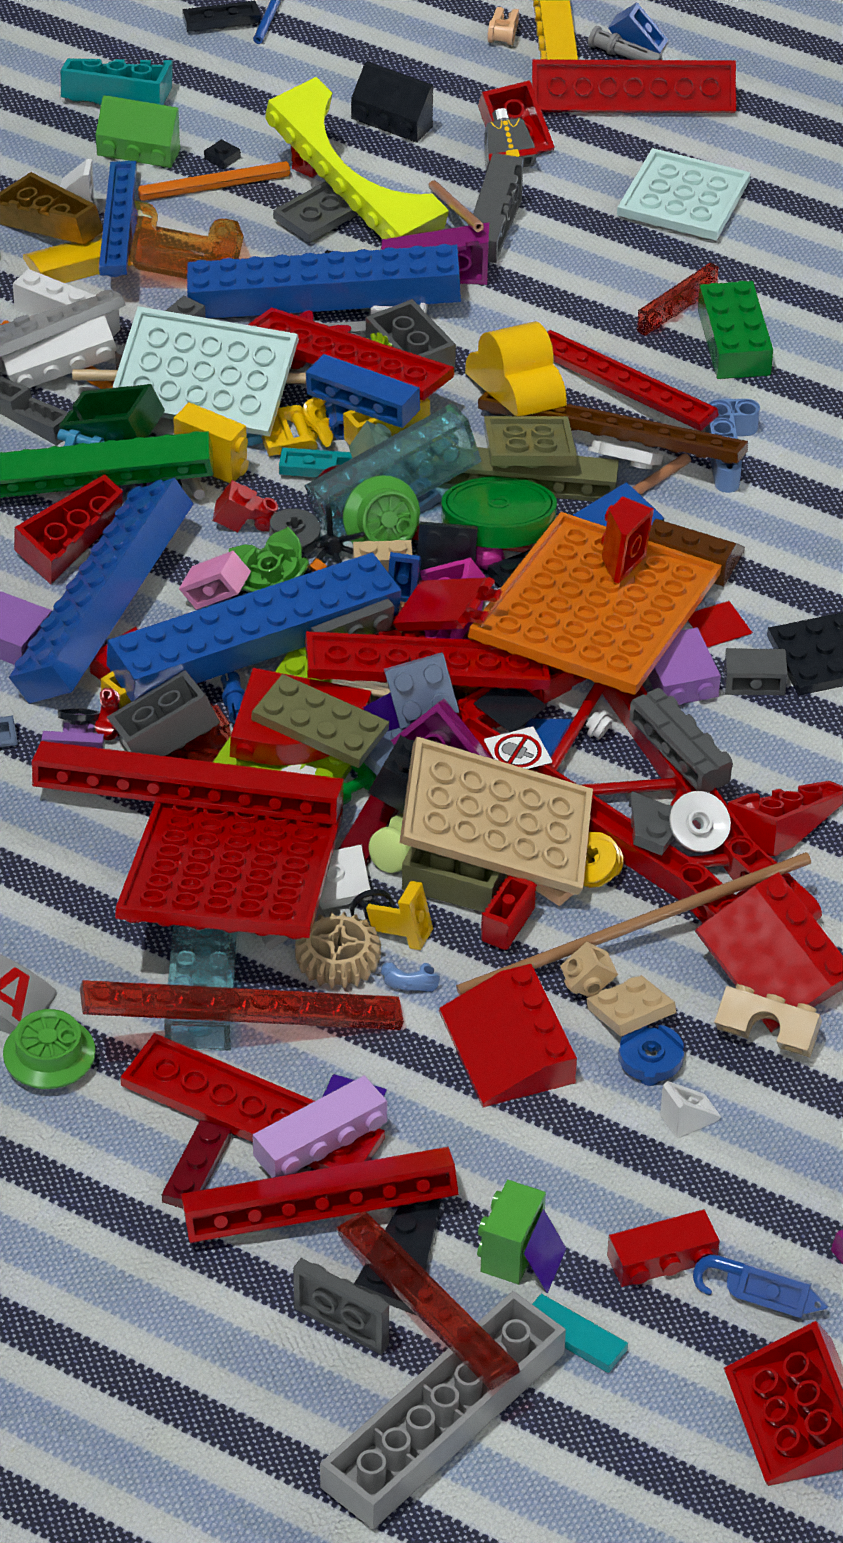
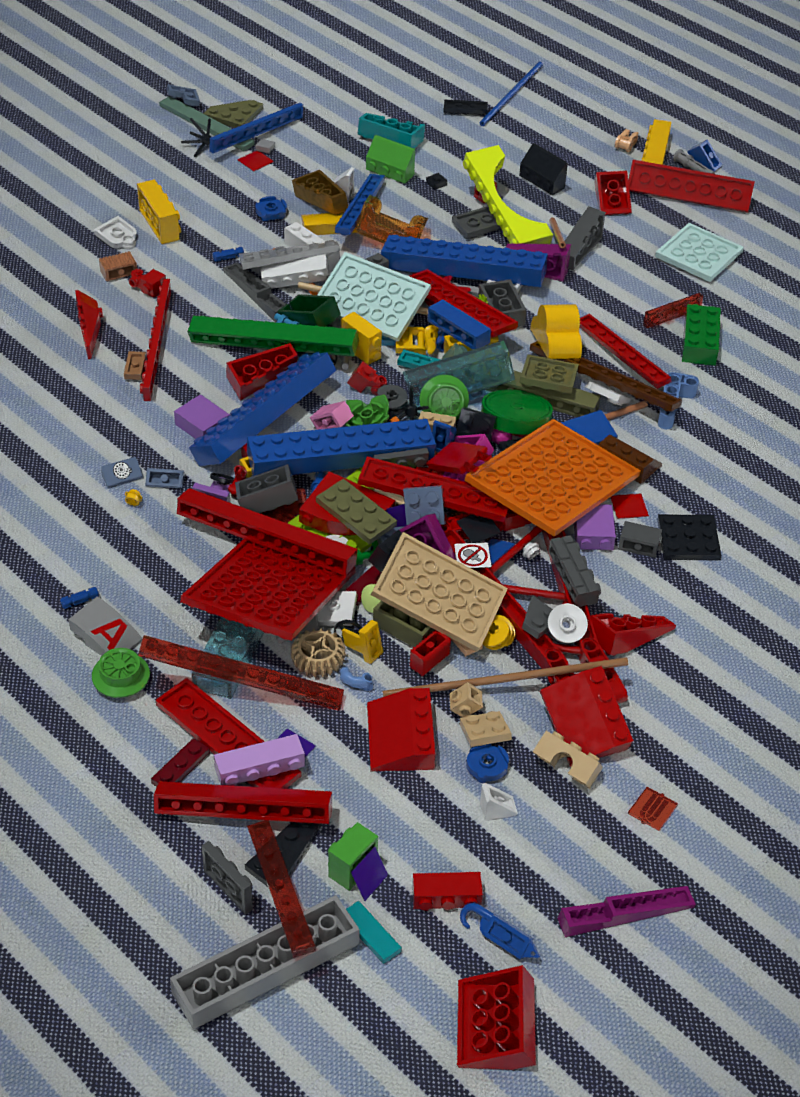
camera: 15 degrees right, 0 degrees up
(214, 181) = (425, 194): orange axle -> none
(508, 138) = (605, 201): dark grey torso -> none
(625, 537) = (583, 440): red slope -> none

